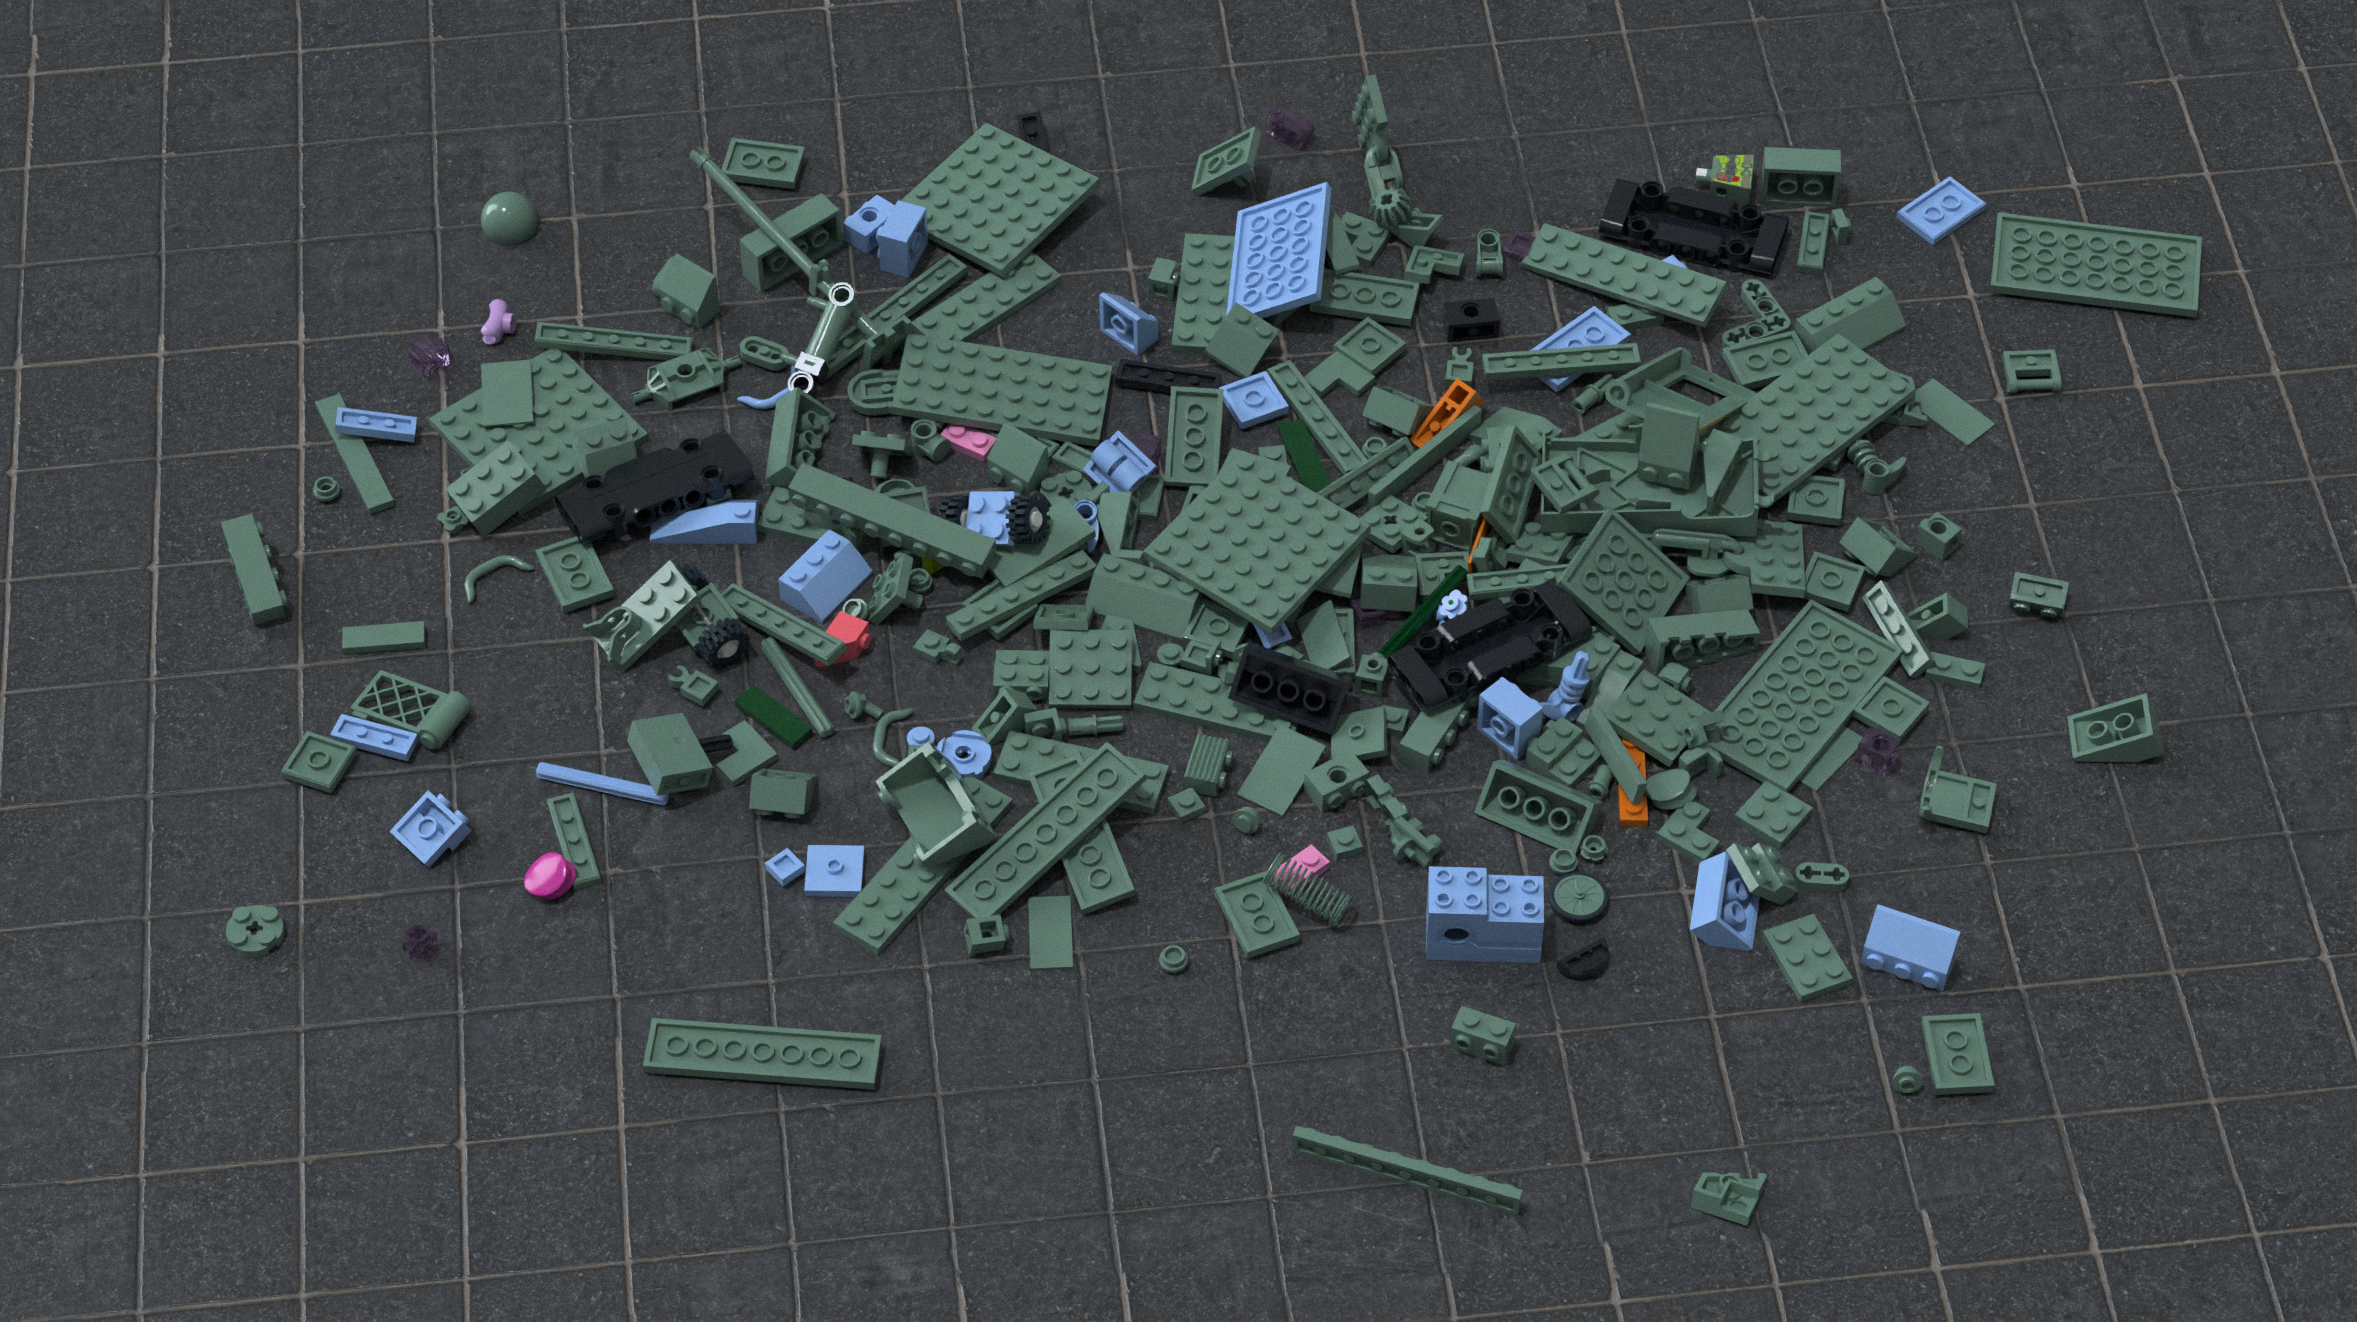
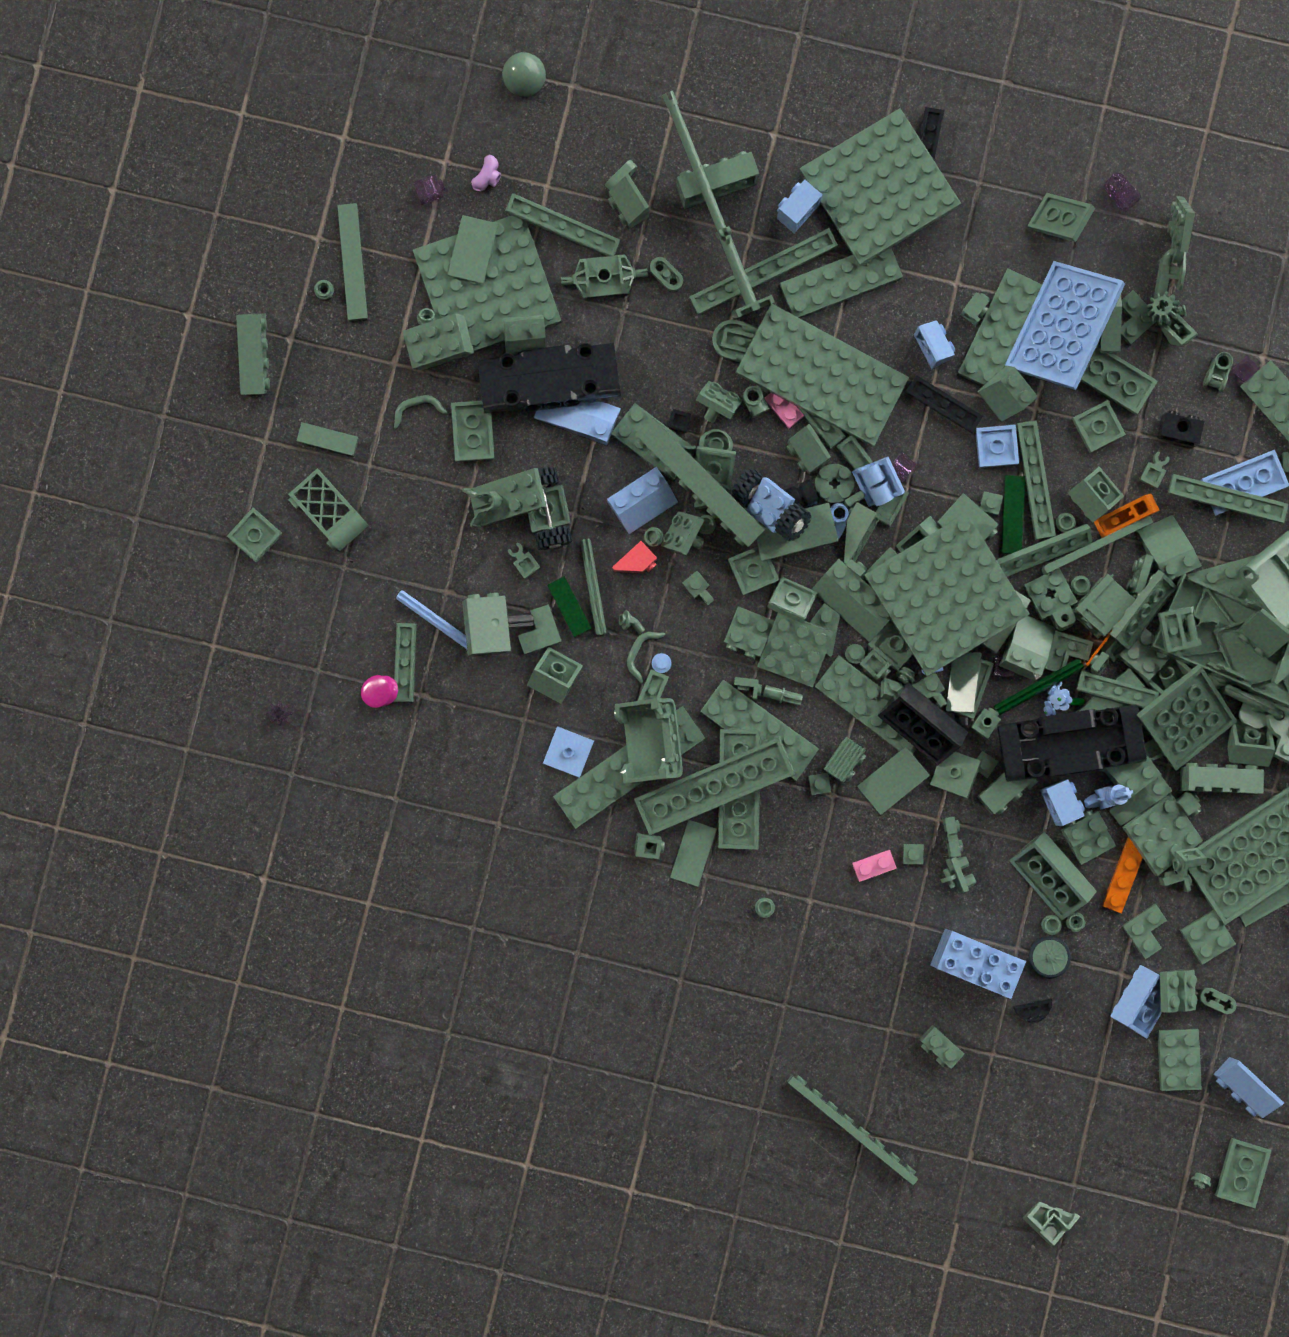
camera: 20 degrees right, 35 degrees up
(251, 917) = (181, 671): sand green plate -> none
(375, 424) = (372, 245): light blue plate -> none
(375, 737) = (297, 527): light blue plate -> none
(431, 828) = (313, 622): light blue plate -> none
(453, 519) = (399, 354): sand green plate -> none
(762, 1053) = (474, 884): sand green plate -> none
(763, 163) = (724, 85): sand green plate -> none
(767, 403) = (666, 317): light blue animal -> none
(784, 625) = (597, 535): sand green tile -> none
(785, 867) = (536, 739): light blue plate -> none
(795, 435) = (661, 367): sand green wedge -> none
(813, 363) = (698, 304): sand green piece -> none
(863, 225) = (777, 186): light blue brick -> none
(972, 743) = (695, 684): light blue plate -> none
(1004, 715) = (723, 668): sand green slope -> none
(1021, 595) = (770, 569): sand green plate -> none
(1193, 436) = (940, 471): sand green plate -> none
(1246, 820) = (854, 814): sand green plate -> none
(1256, 915) = (832, 893): sand green plate -> none
(1334, 919) = (855, 876): sand green piece -> none
(1336, 781) = (914, 806): sand green brick -> none
(1339, 370) = (1066, 438): sand green tile -> none
(1427, 260) = (1172, 361): sand green plate -> none
(1470, 455) = (1128, 556): sand green arm -> none
(1592, 394) = (1240, 528): sand green axle -> none
(1599, 785) = (1103, 870): sand green pin -> none
(1615, 755) = (1120, 861): sand green tile -> none
(1670, 789) = (1146, 895): sand green piece -> none

